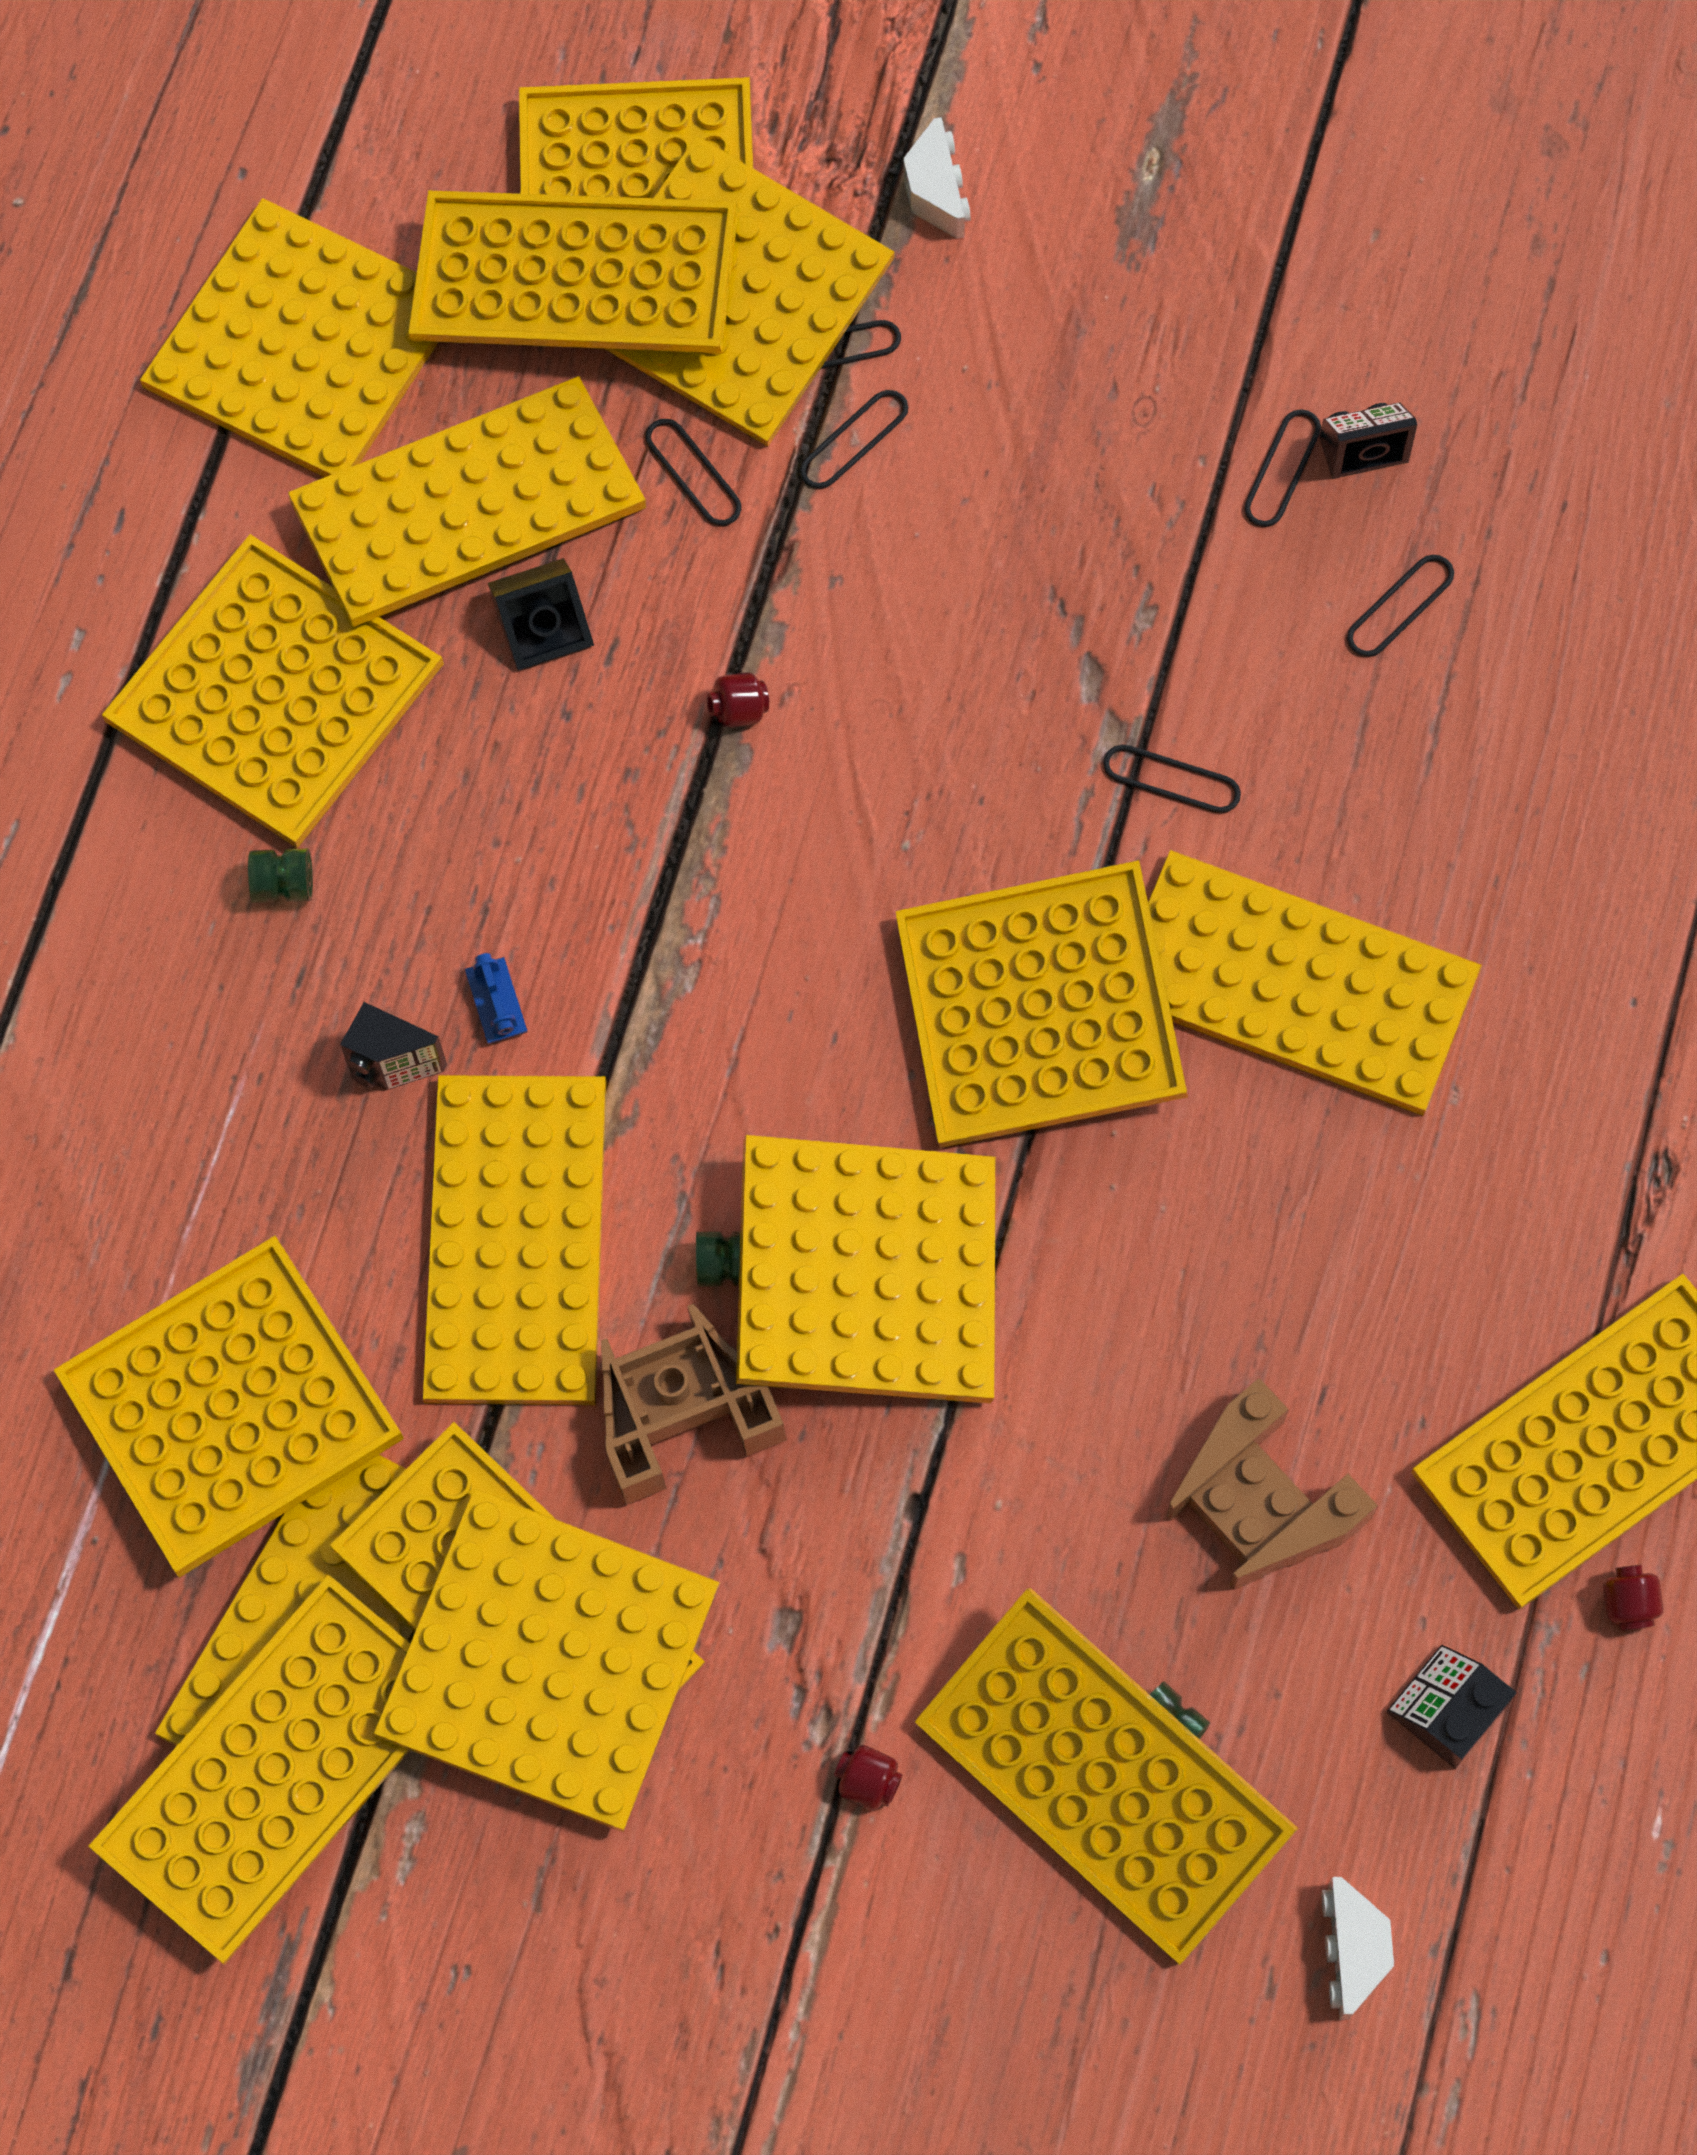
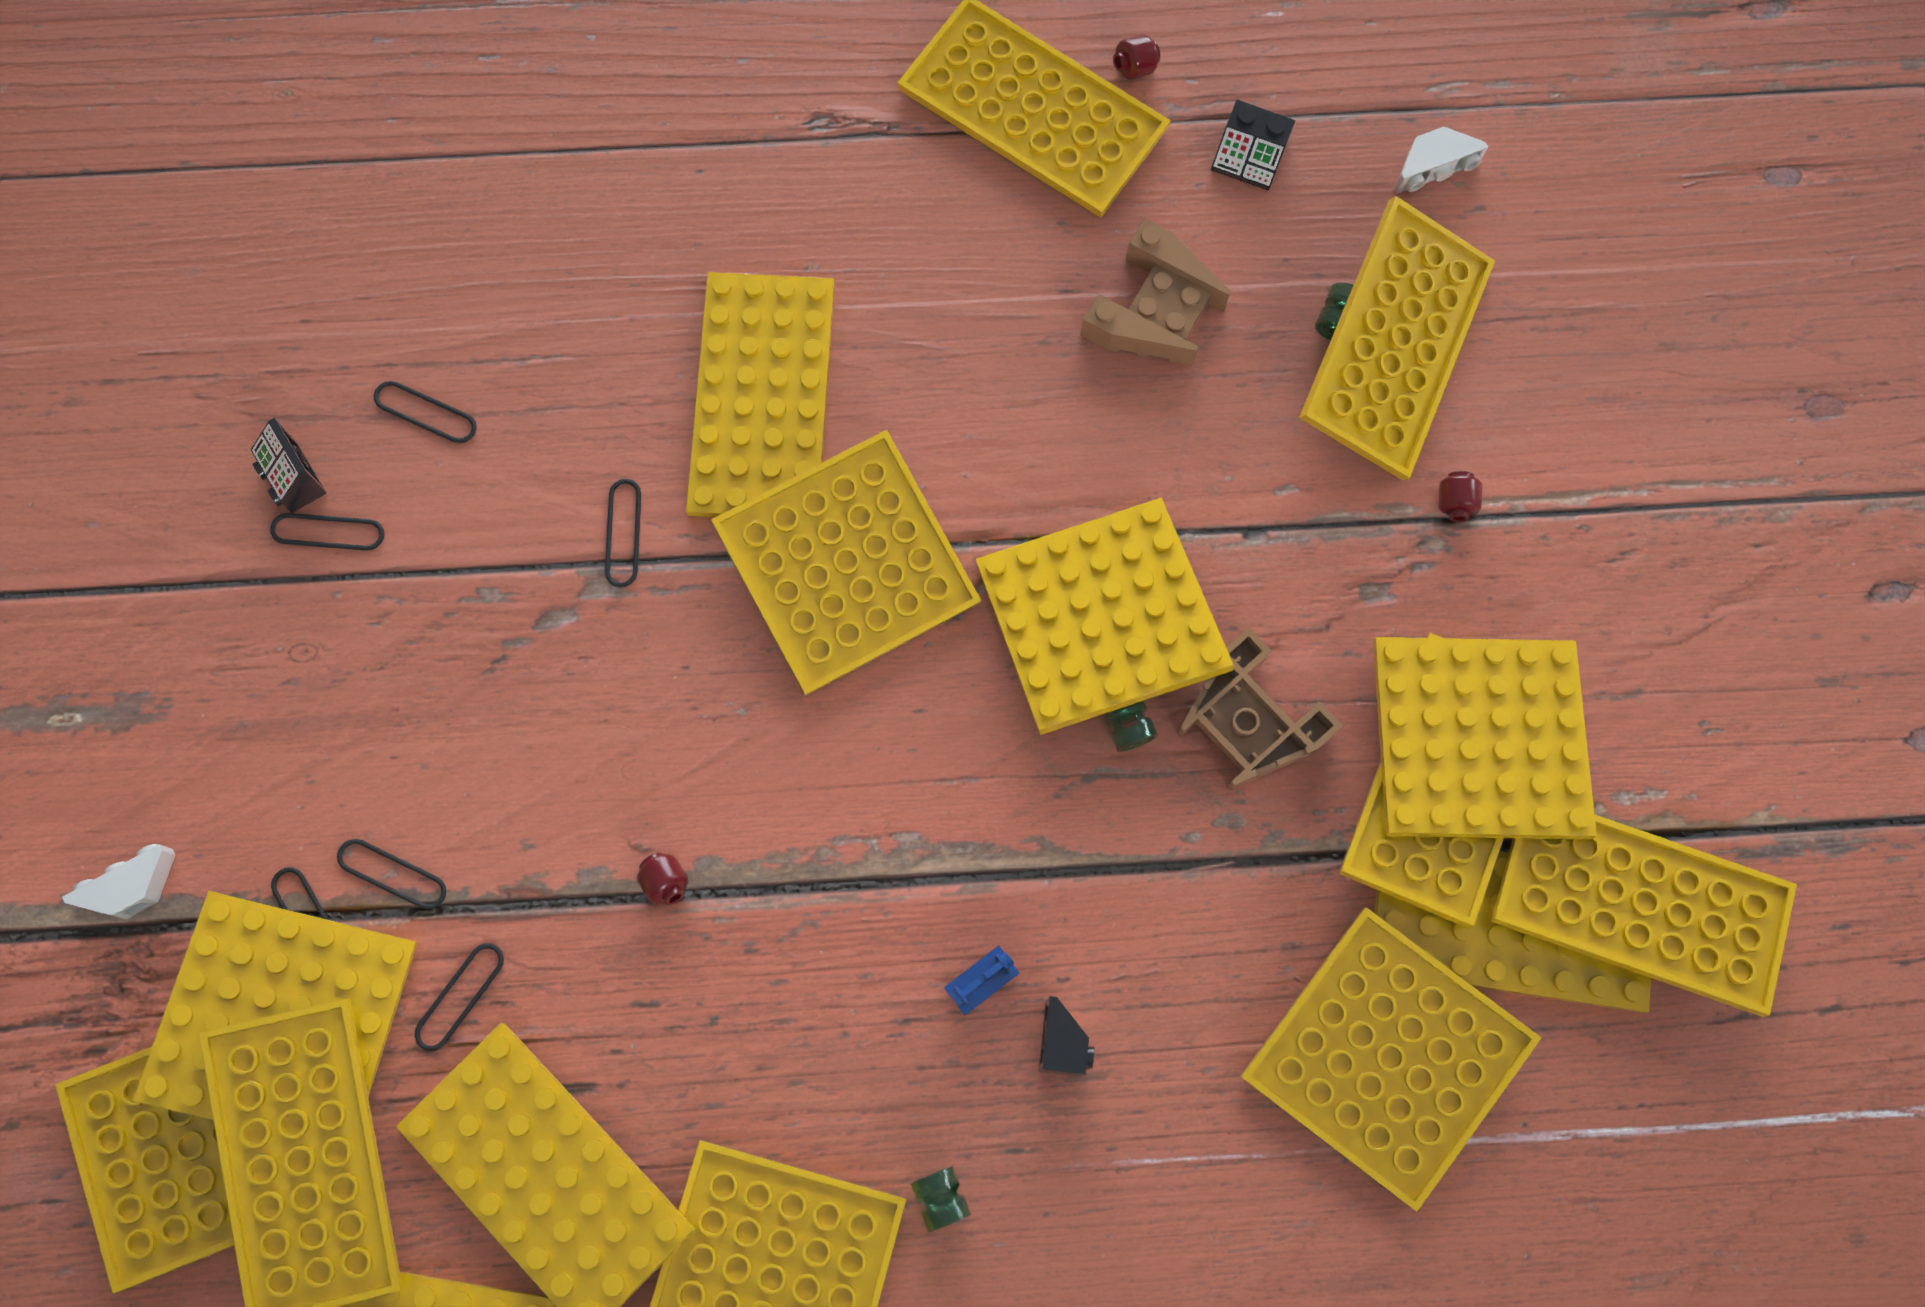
camera: 115 degrees left, 5 degrees up
(515, 1240) = (1166, 891): yellow plate -> none
(541, 613) = (631, 1072): black slope -> none

